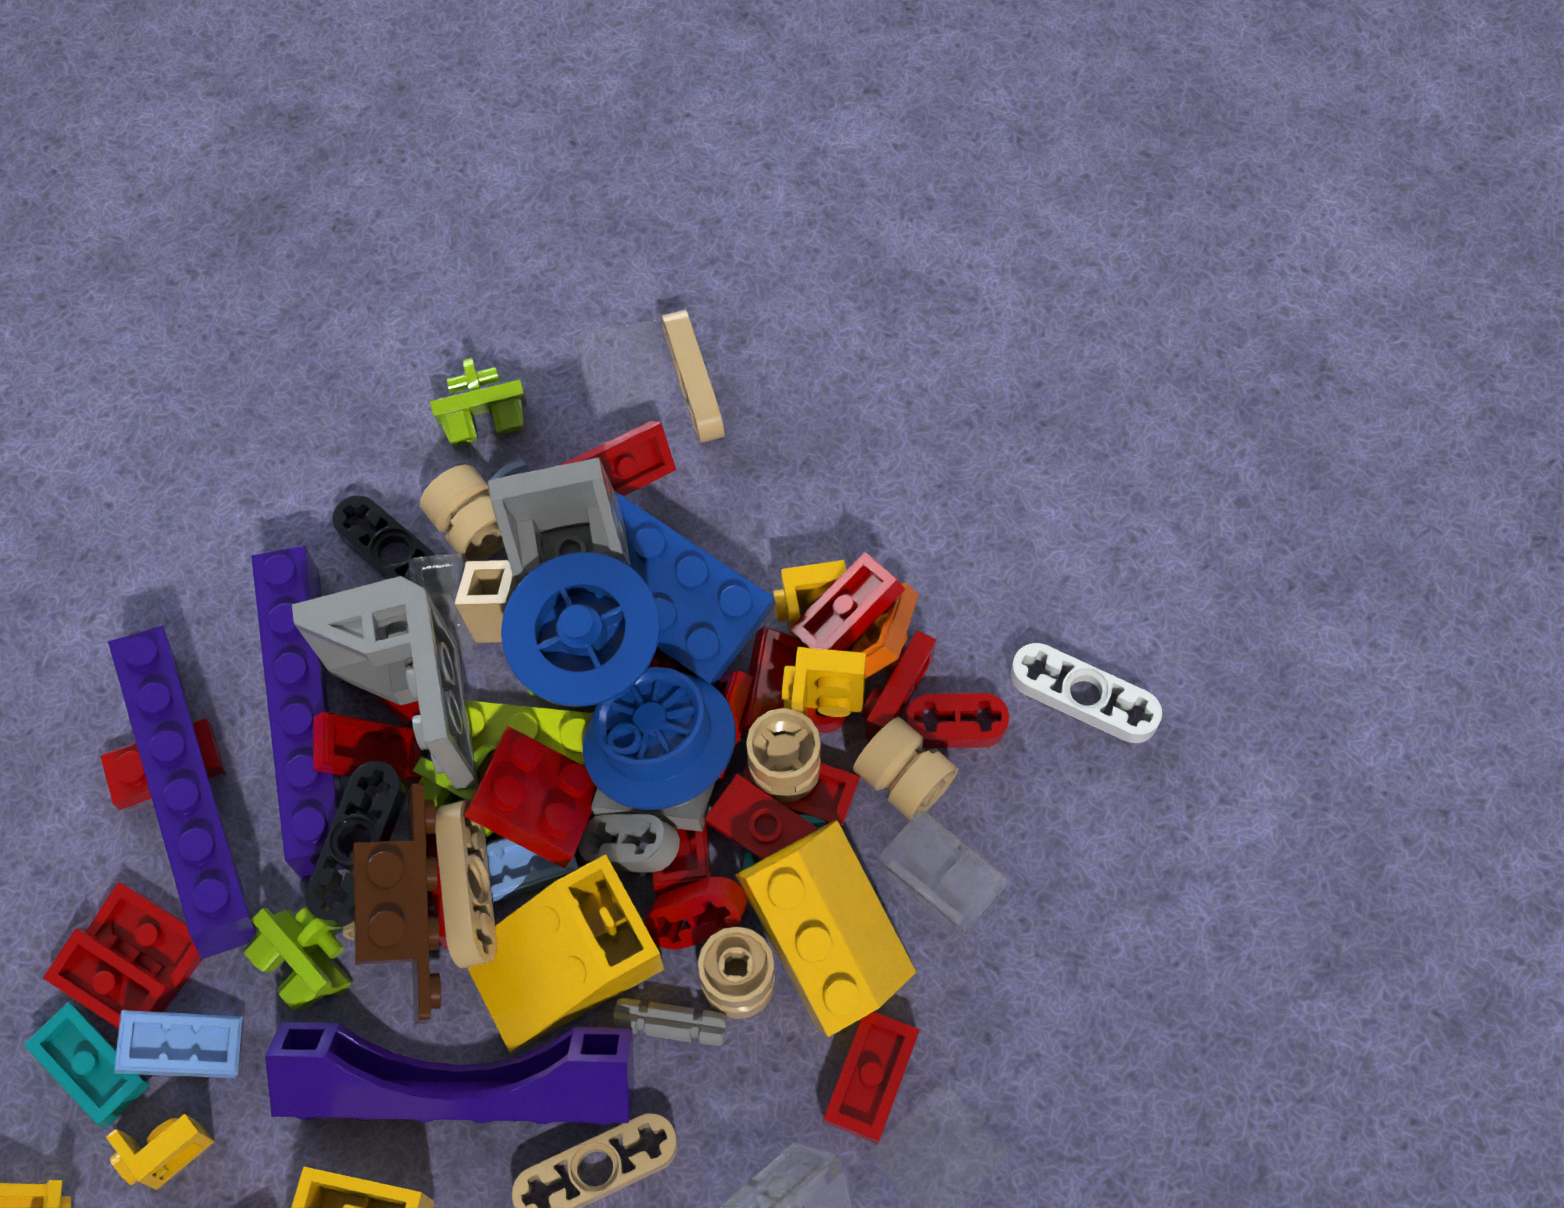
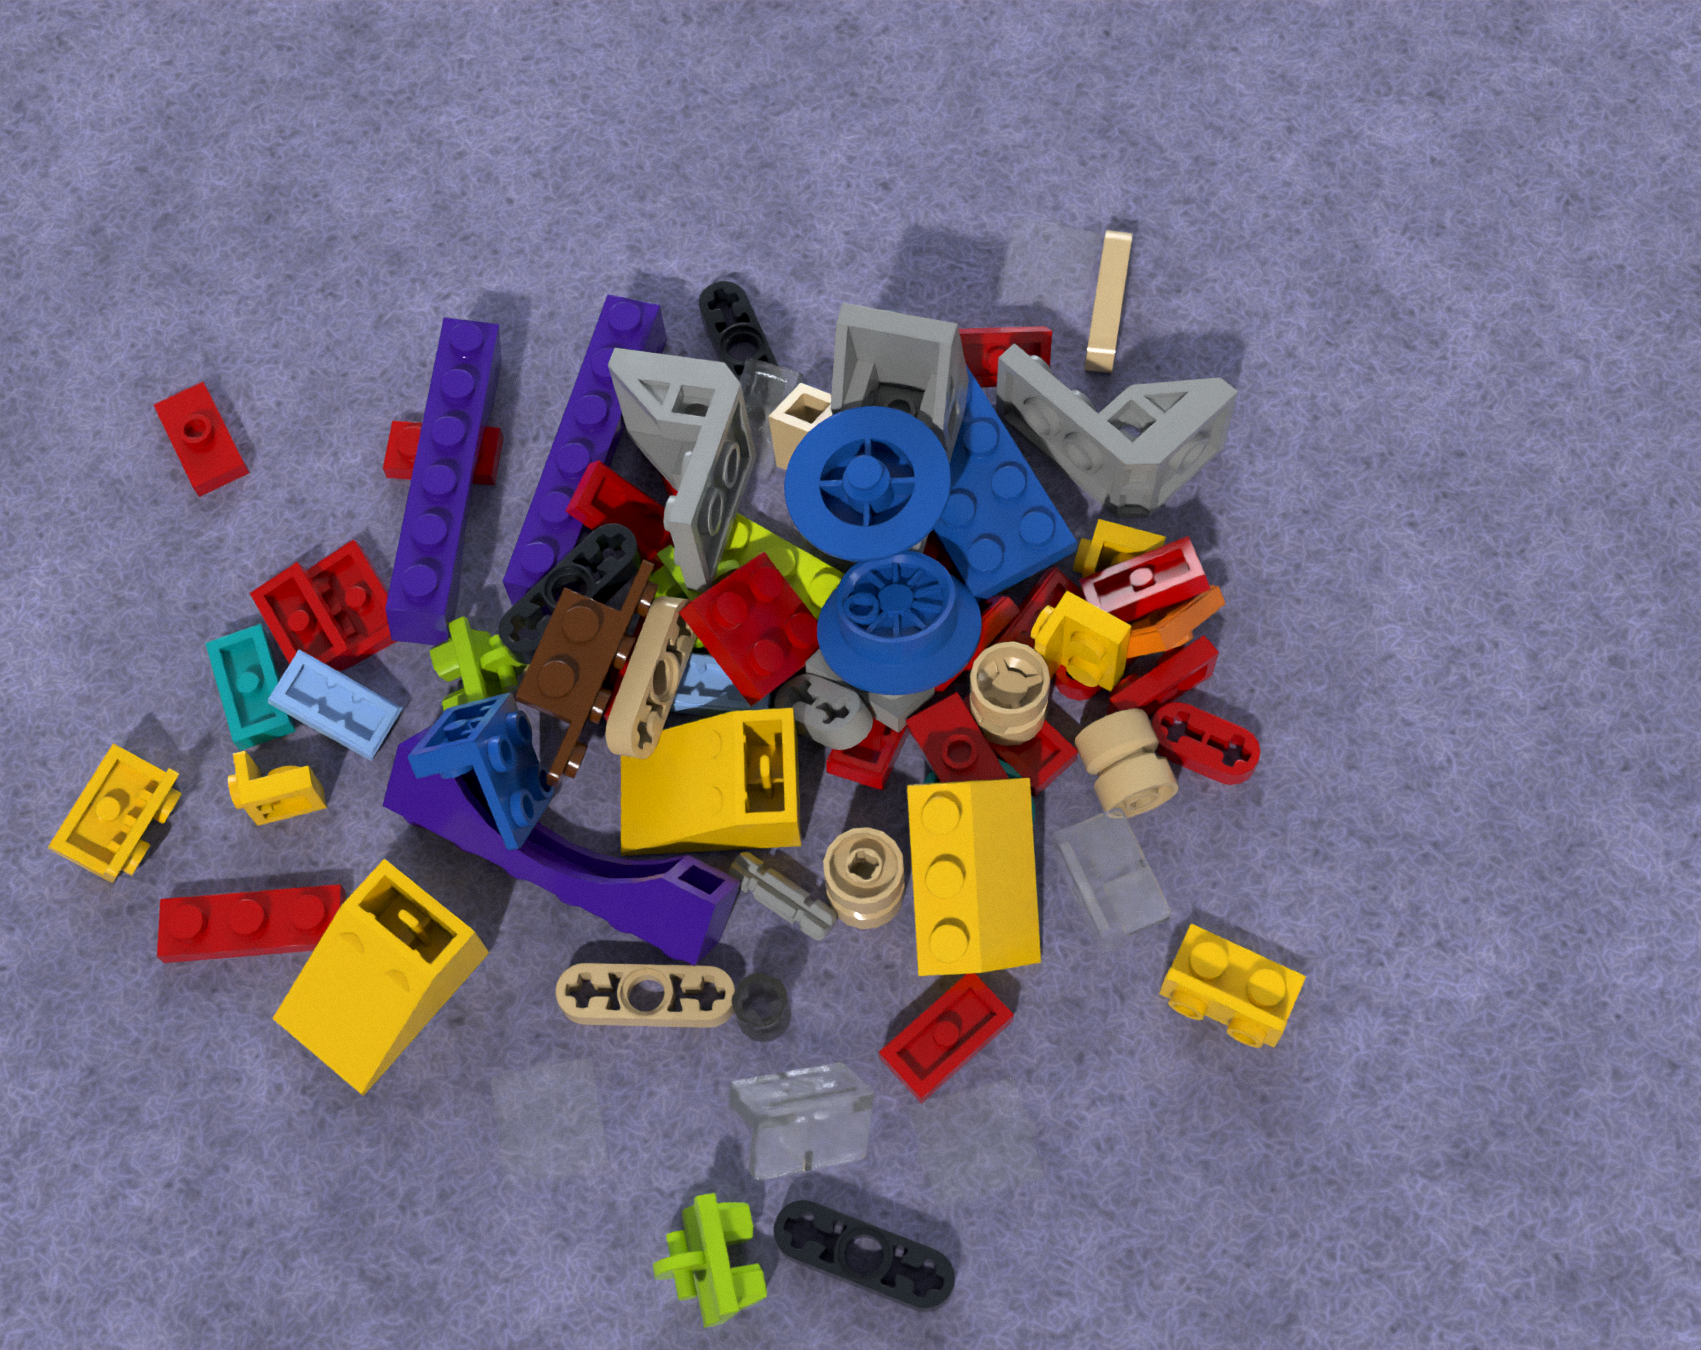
camera: 30 degrees right, 0 degrees up
(348, 1010) = (498, 745): none -> blue bracket
(457, 410) = (912, 248): lime hips -> none
(462, 508) = (812, 333): tan wheel -> none
(690, 905) = (852, 791): red beam -> none
(703, 1111) = (775, 995): none -> clear smoke bush
(770, 517) = (1127, 474): none -> light grey bracket
(1078, 671) = (1391, 799): white beam -> none
(1081, 917) = (1231, 987): none -> yellow bracket

